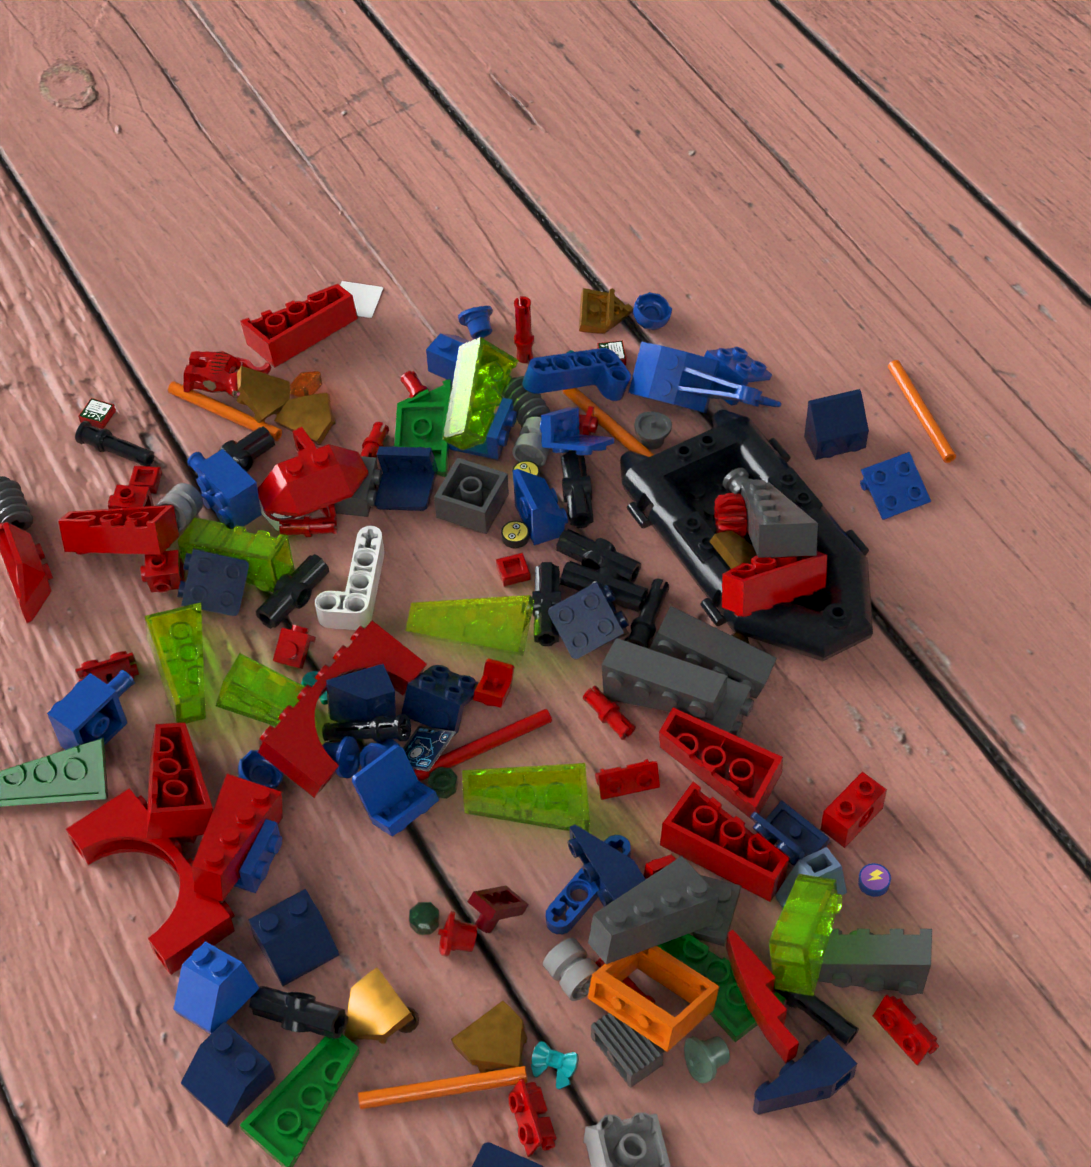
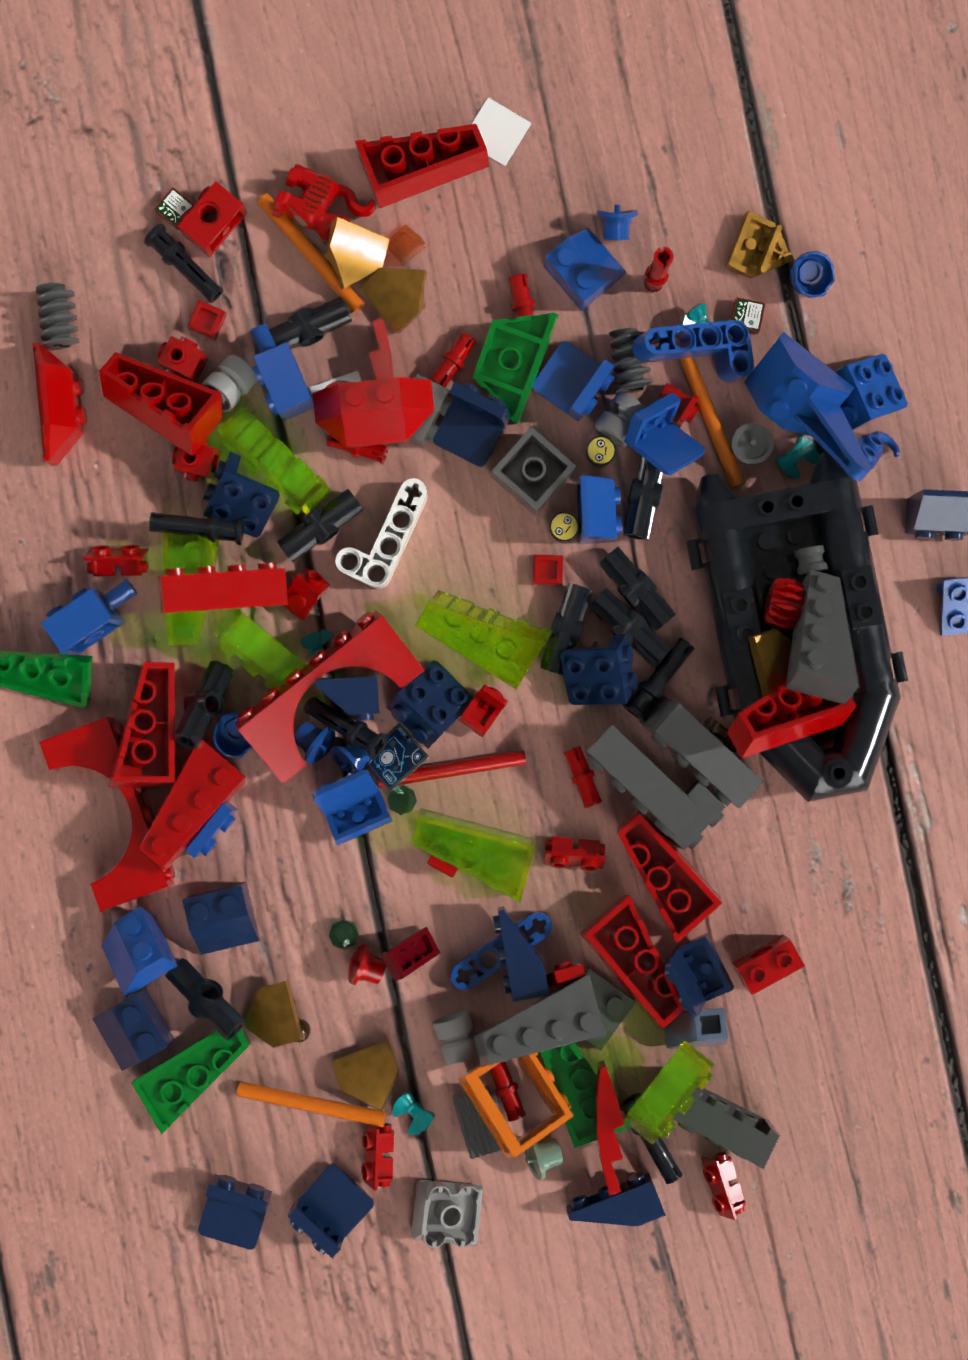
camera: 15 degrees right, 35 degrees up
(131, 408) = (211, 235): none -> red brick
(194, 603) = (212, 528): none -> black pin
(217, 640) = (222, 589): none -> red wedge
(222, 749) = (203, 705): none -> black piece
(476, 391) = (578, 344): clear neon green wedge -> none
(502, 820) = (444, 867): none -> red tile
(699, 423) = (803, 448): none -> teal piece
(874, 880) = (757, 1034): tile -> none

